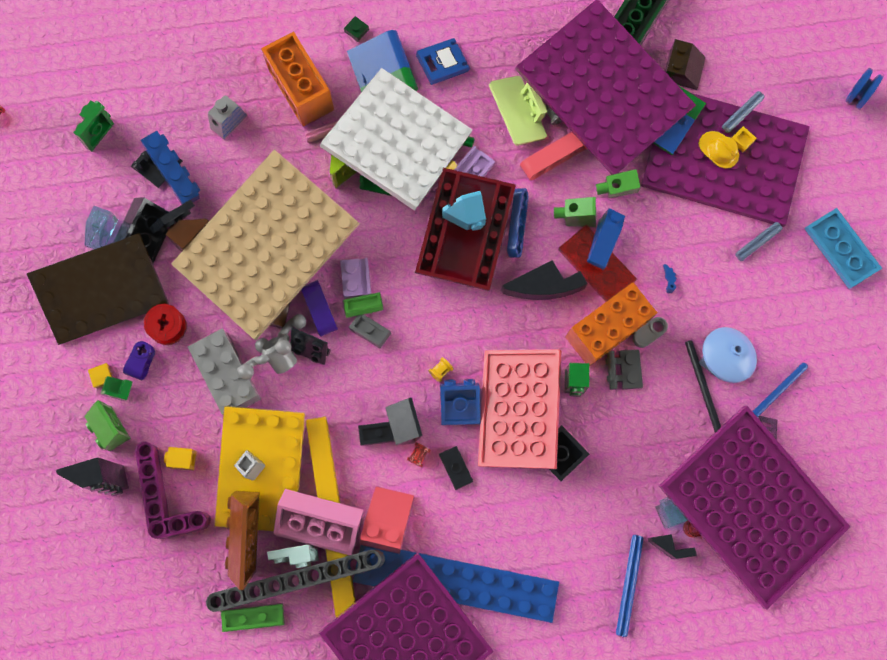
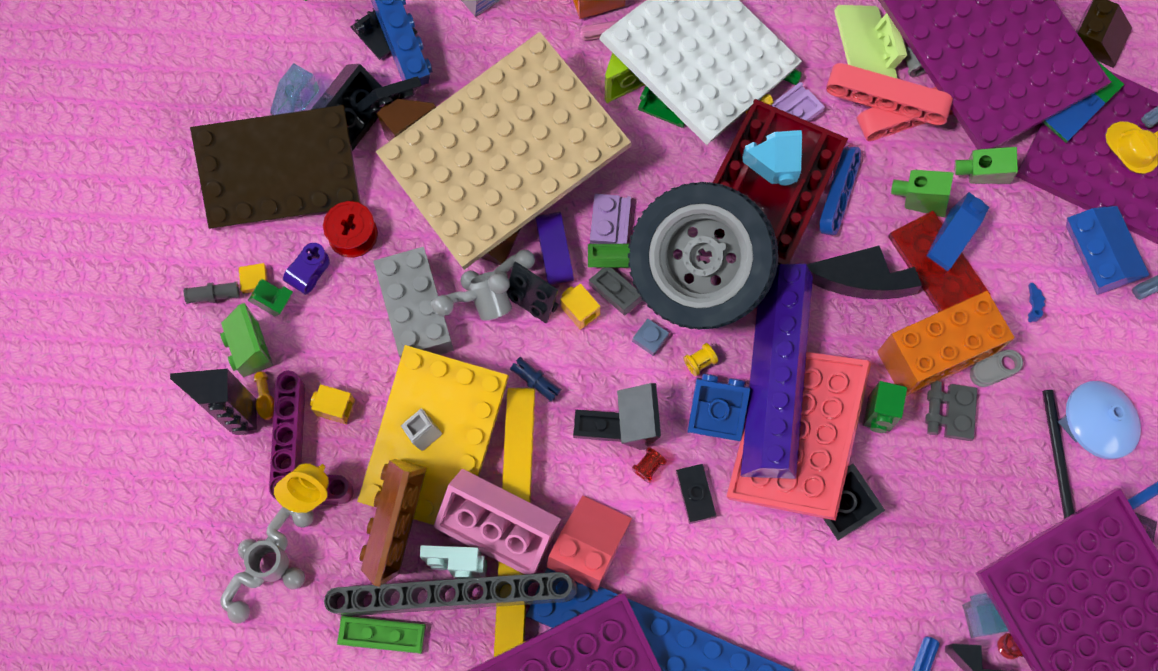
camera: 15 degrees right, 5 degrees down
(71, 393) = (211, 292): none -> dark grey pin
(130, 466) = (265, 401): none -> light orange piece
(146, 581) = (252, 553): none -> light grey wheel
(173, 527) = (302, 488): none -> yellow piece
(325, 409) = (535, 379): none -> dark blue pin
(346, 348) = (579, 305): none -> yellow brick
(400, 317) = (666, 228): none -> wheel
(401, 360) = (650, 337): none -> sand blue plate
(497, 369) = (778, 376): none -> dark purple slope
(539, 144) = (889, 94): none -> coral beam
(712, 229) = (1106, 248): none -> blue slope

